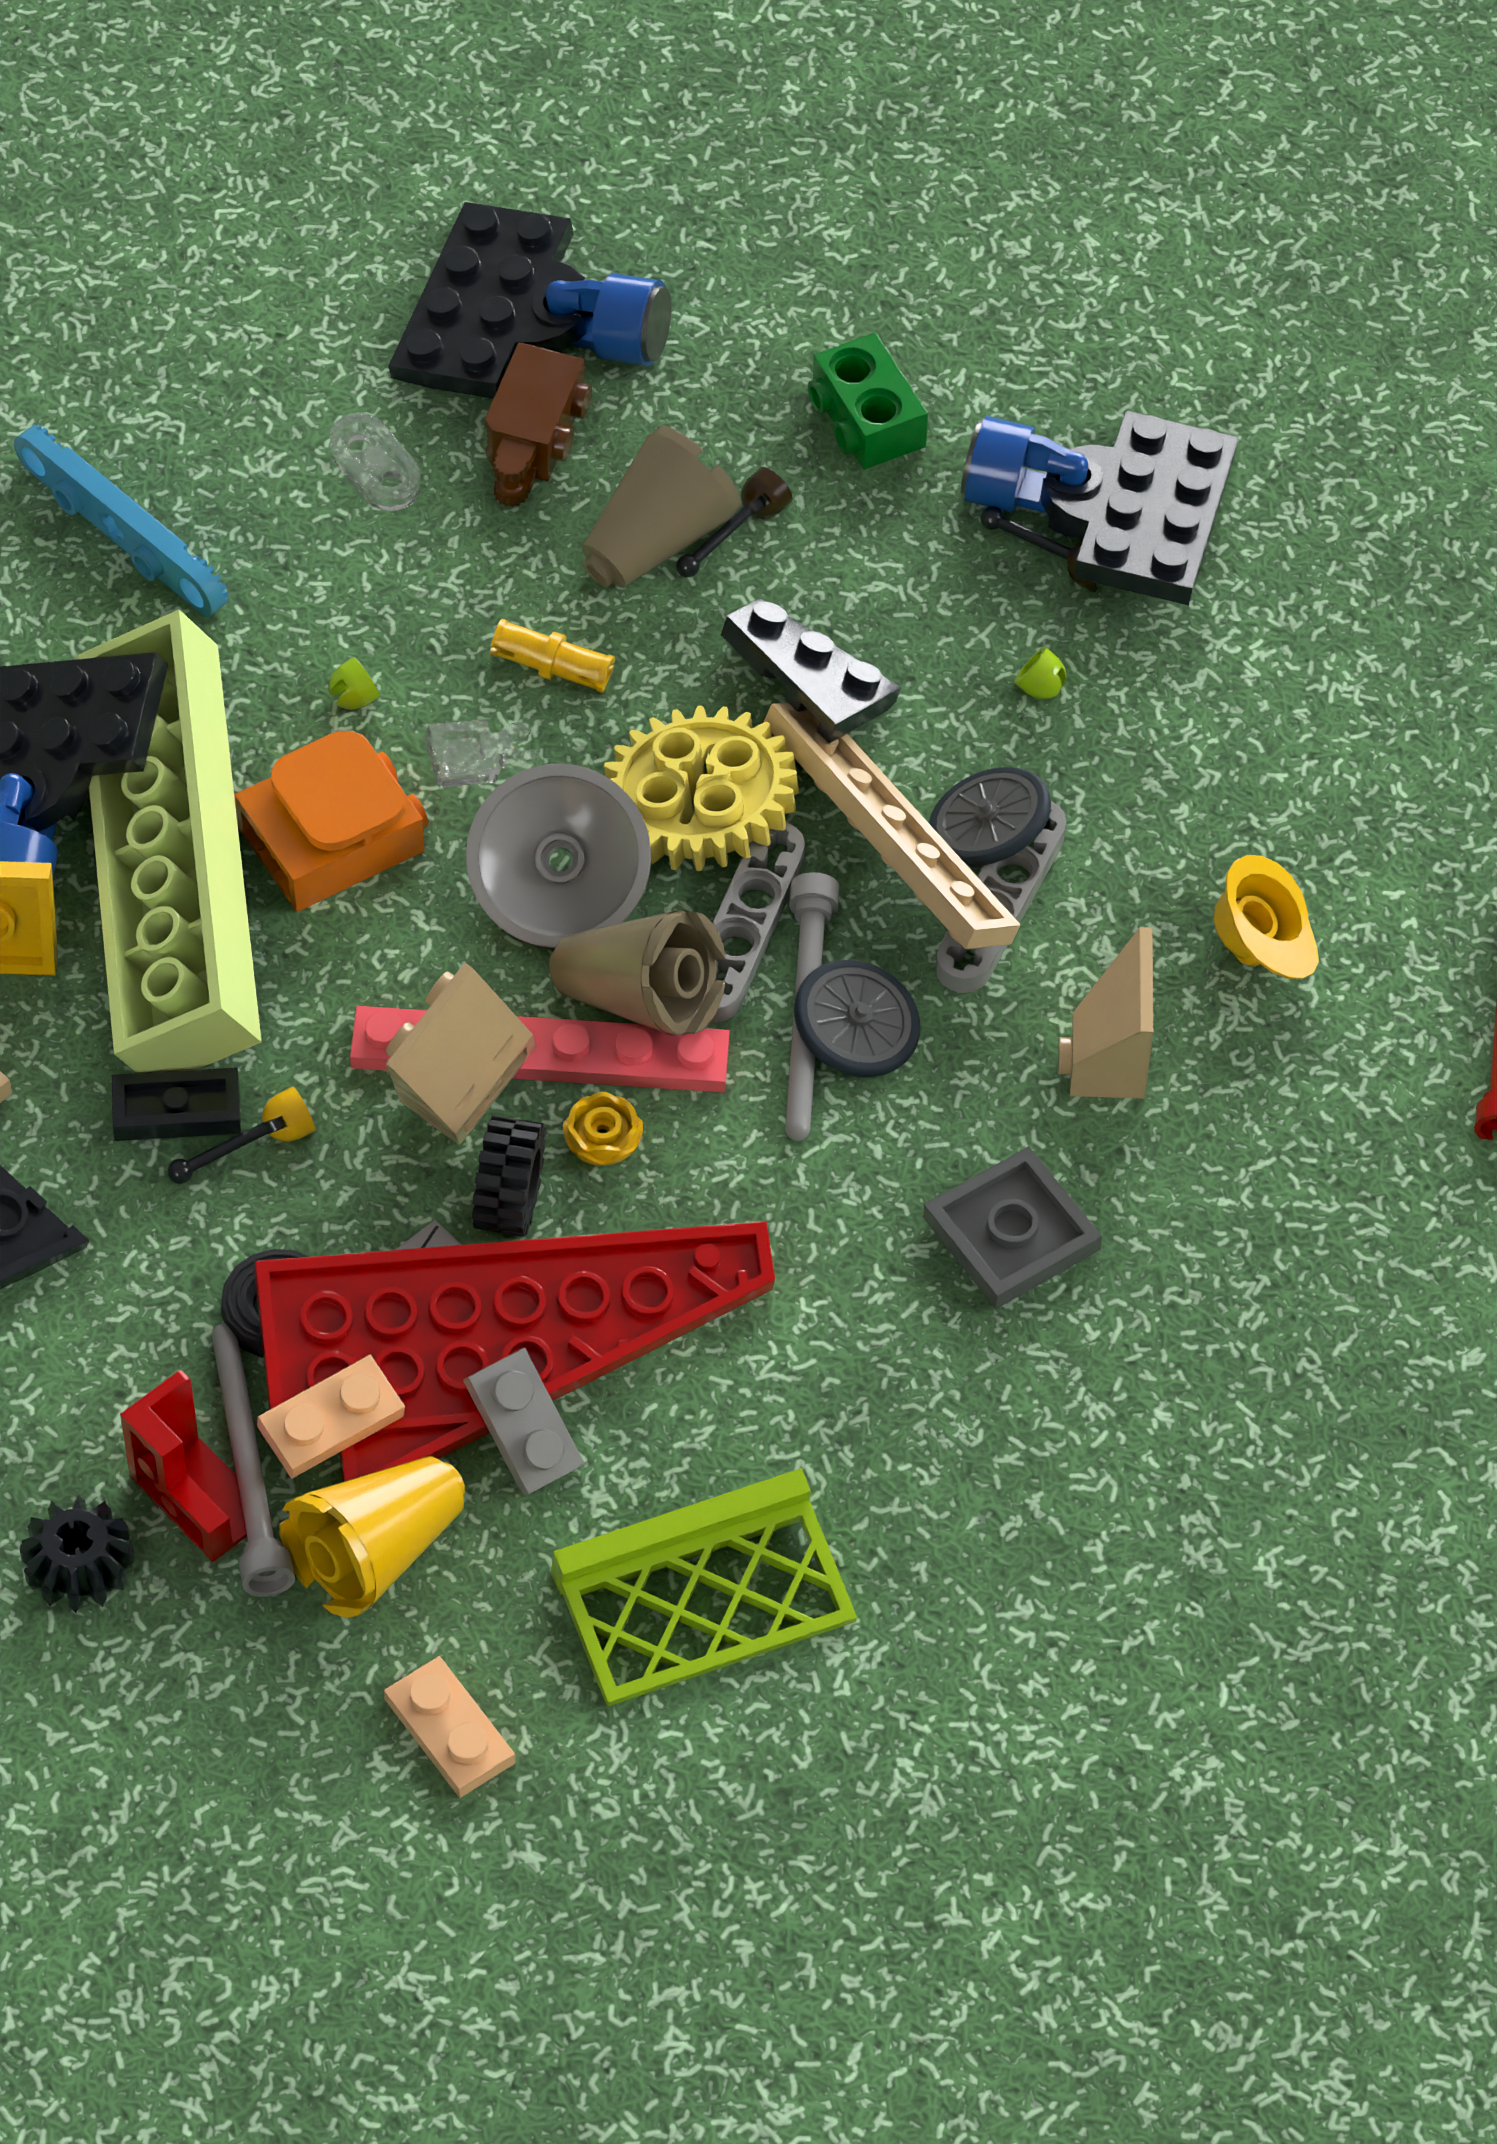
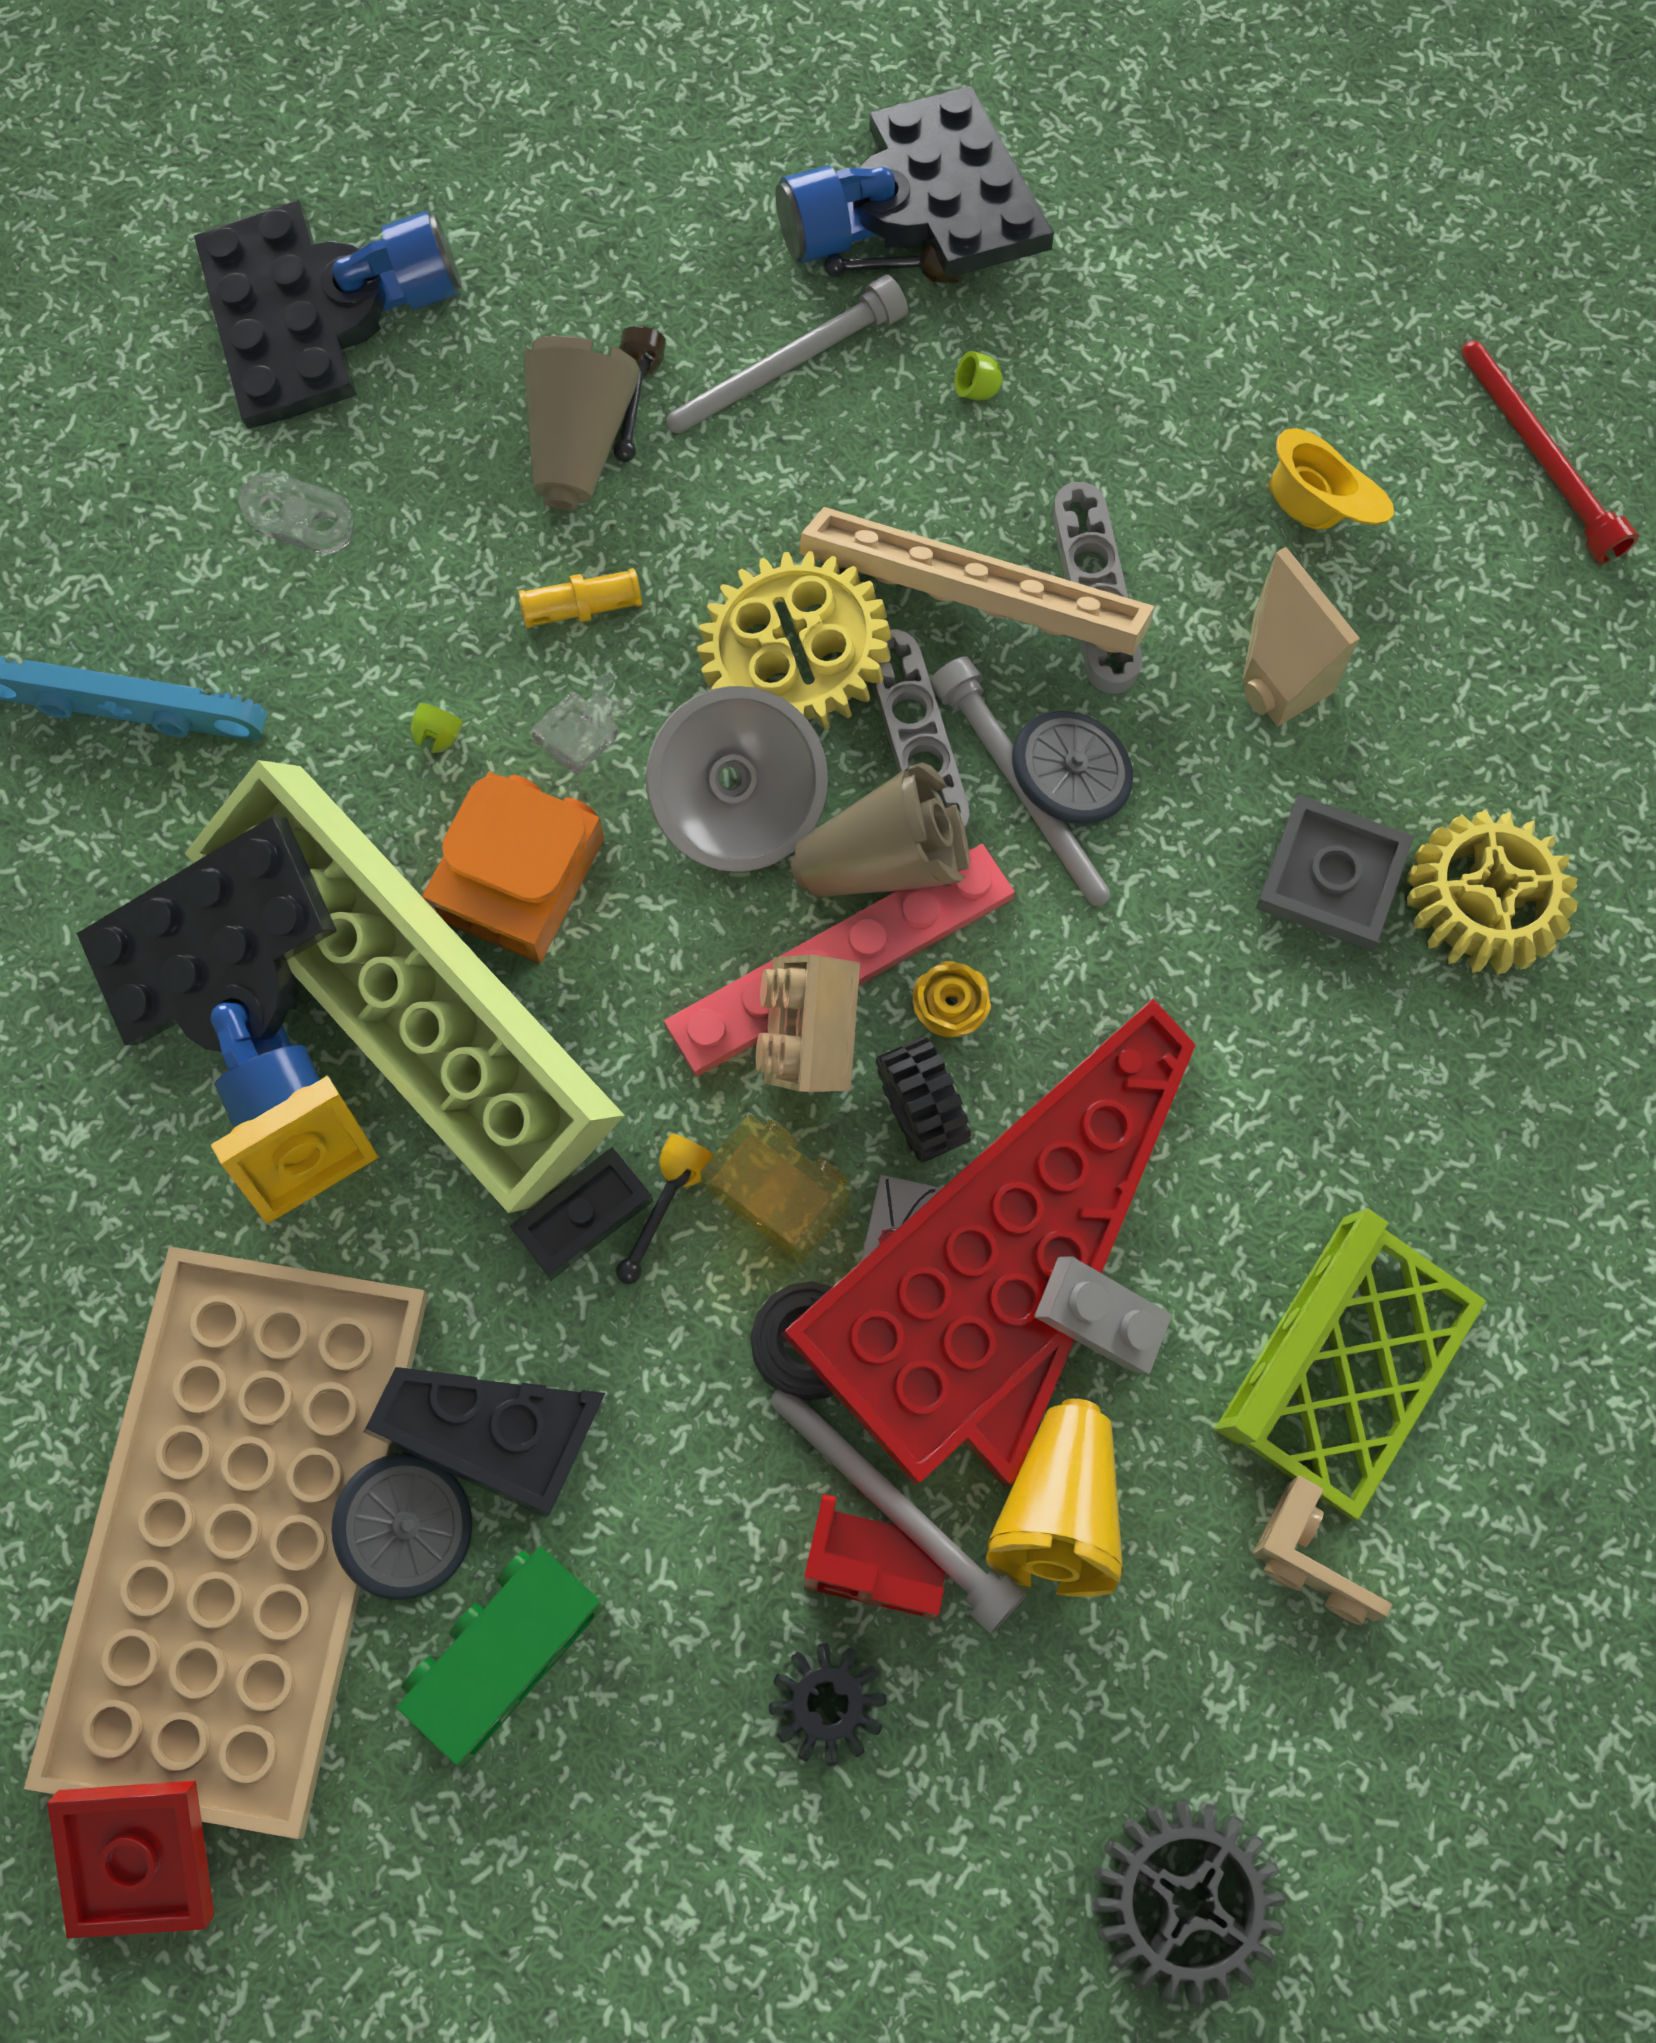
camera: 35 degrees left, 15 degrees up
(286, 1837) = (1169, 1931): none -> dark grey gear
(330, 1416) = (954, 1429): light nougat plate -> none
(342, 1175) = (777, 1187): none -> clear yellow brick
(449, 1726) = (1250, 1635): light nougat plate -> none
(534, 418) = (402, 396): reddish brown hinge -> none
(548, 1662) = (1294, 1523): none -> tan bracket
(814, 670) = (813, 482): wing -> none
(868, 401) = (664, 220): green brick -> none
(992, 814) = (1041, 521): dark grey wheel -> none
(1000, 569) = (879, 304): none -> light grey piece
(1148, 1349) = (1534, 878): none -> light yellow gear

